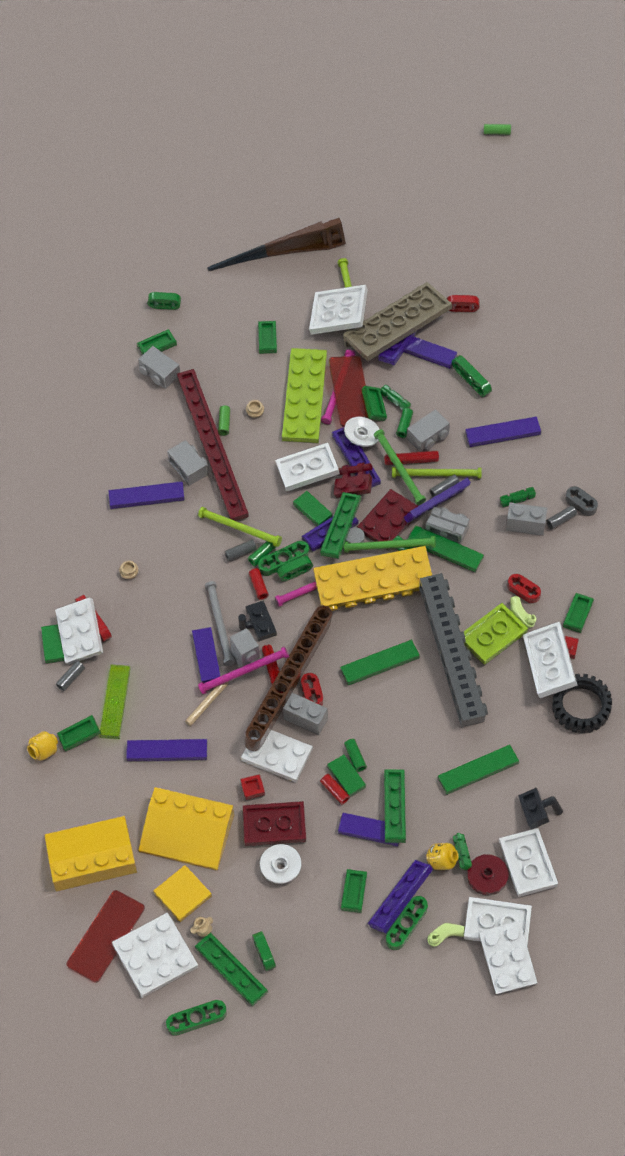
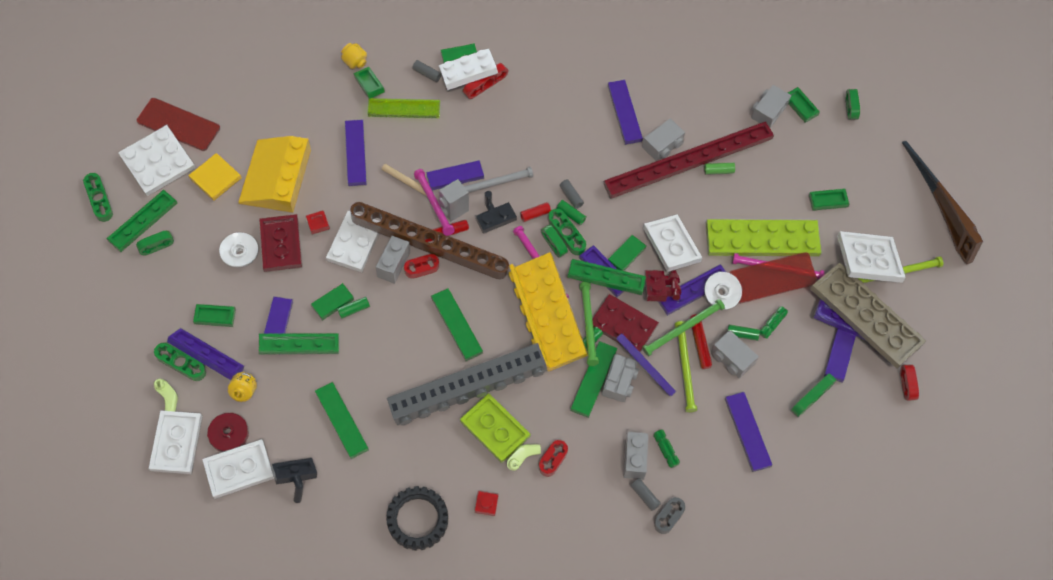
camera: 80 degrees right, 5 degrees up
(90, 853) = (253, 102): yellow slope -> none
(128, 569) = (540, 104): tan plate -> none
(202, 926) = (180, 192): tan plate -> none
(254, 408) = (737, 194): tan plate -> none
(276, 540) = (581, 219): lime bar -> none
(335, 789) = (317, 292): red axle -> none
(355, 535) = (598, 294): light grey tile -> none
(374, 403) = (761, 301): green tile -> none
(444, 485) = (667, 372): dark grey axle -> none
(462, 849) = (249, 406): green axle -> none
(507, 957) = (136, 451): white plate -> none
(549, 660) = (461, 480): white plate -> none
(578, 612) = (529, 515): green tile -> none

